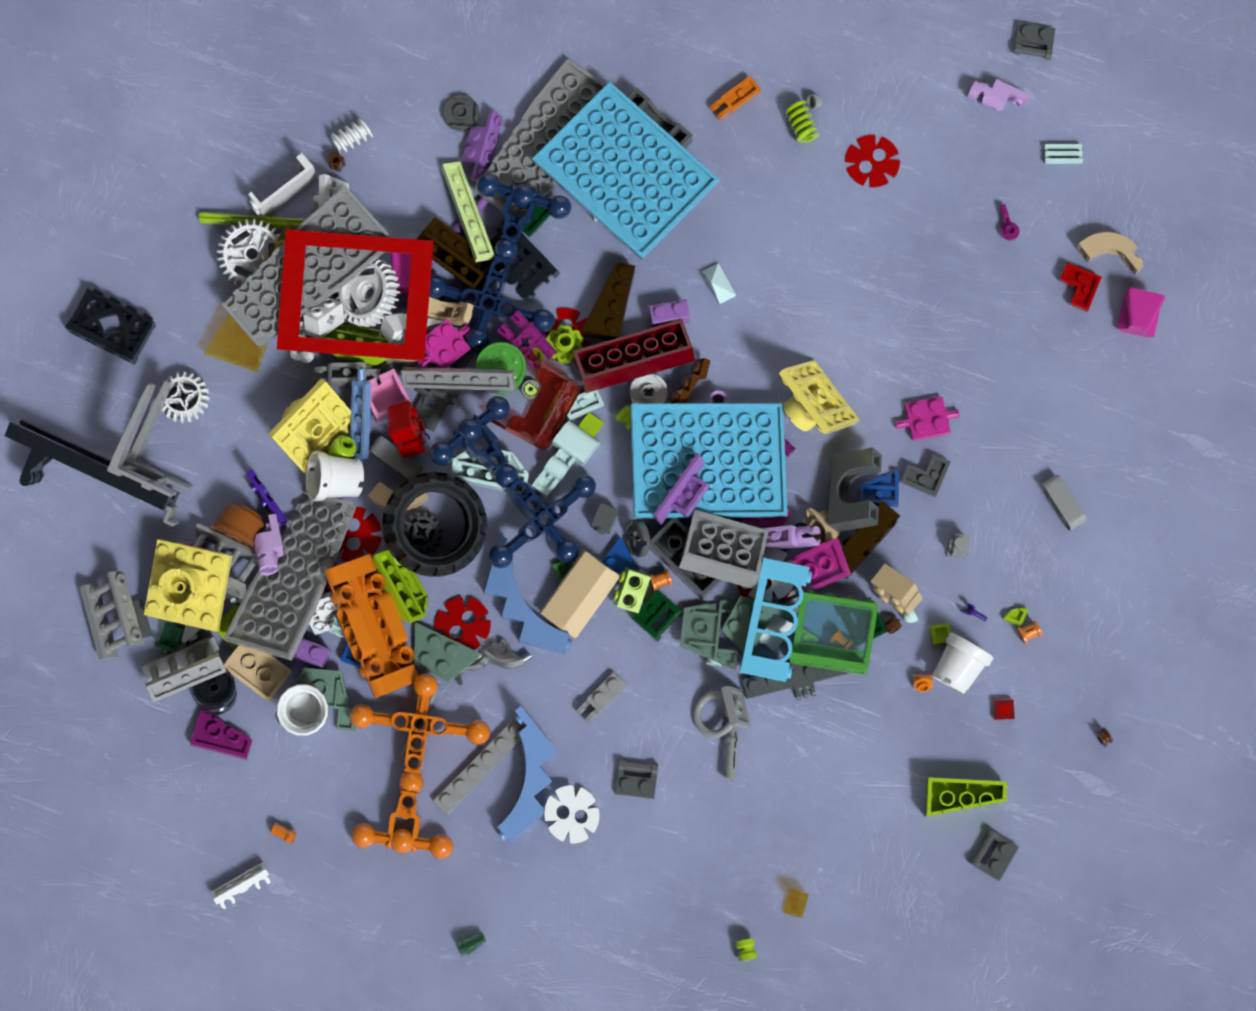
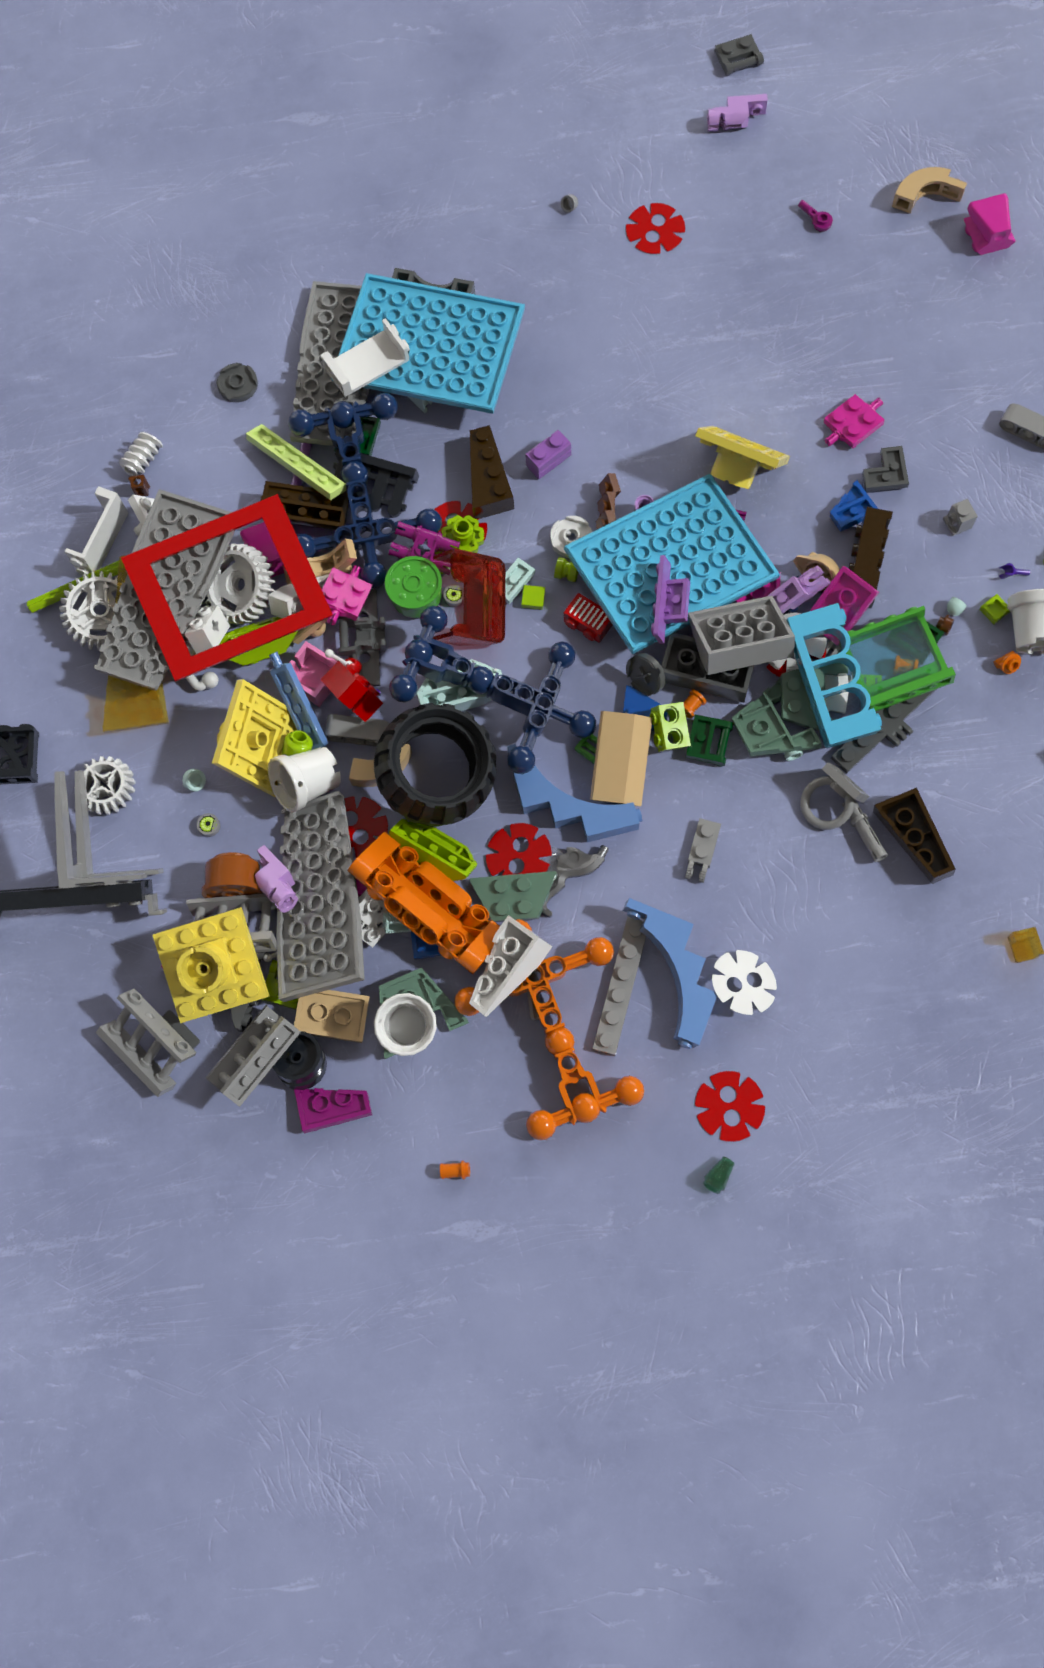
camera: 20 degrees left, 5 degrees down
(170, 638) = (221, 1032): clear green bracket -> none
(240, 884) = (439, 1251): white plate -> none
(241, 470) = (208, 825): none -> tile
(252, 430) = (194, 779): none -> light aqua tile
(266, 500) = (238, 833): dark purple wing -> none
(312, 654) = (381, 967): medium lavender brick -> none
(343, 373) = (258, 672): light grey hinge -> none
(408, 704) = (511, 961): none -> white wedge
(415, 402) = (356, 665): none -> hinge
(427, 528) = (428, 778): dark grey gear -> none
(458, 378) = (378, 613): light grey plate -> none
(481, 145) = (273, 398): medium lavender bracket -> none
(525, 897) = (714, 1117): none -> red piece
(566, 161) = (367, 360): none -> white panel
(573, 447) = (528, 625): light aqua plate -> none
(604, 519) = (601, 675): dark grey brick -> none
(620, 464) = (587, 618): none -> red brick
(633, 356) = (538, 507): dark red brick -> none
(633, 785) = (790, 918): dark grey plate -> none
(718, 283) = (578, 406): light aqua slope -> none
(736, 97) = (494, 236): orange hinge -> none
(746, 949) = (1006, 1020): lime wheel -> none
(766, 773) = (915, 831): none -> dark brown wedge
(800, 122) = (570, 226): lime piece -> none
(844, 470) = (808, 503): dark grey arch -> none
(896, 590) = (931, 585): tan piece -> none
(1079, 153) = (824, 131): light aqua tile -> none
(1085, 284) = (919, 227): red plate -> none

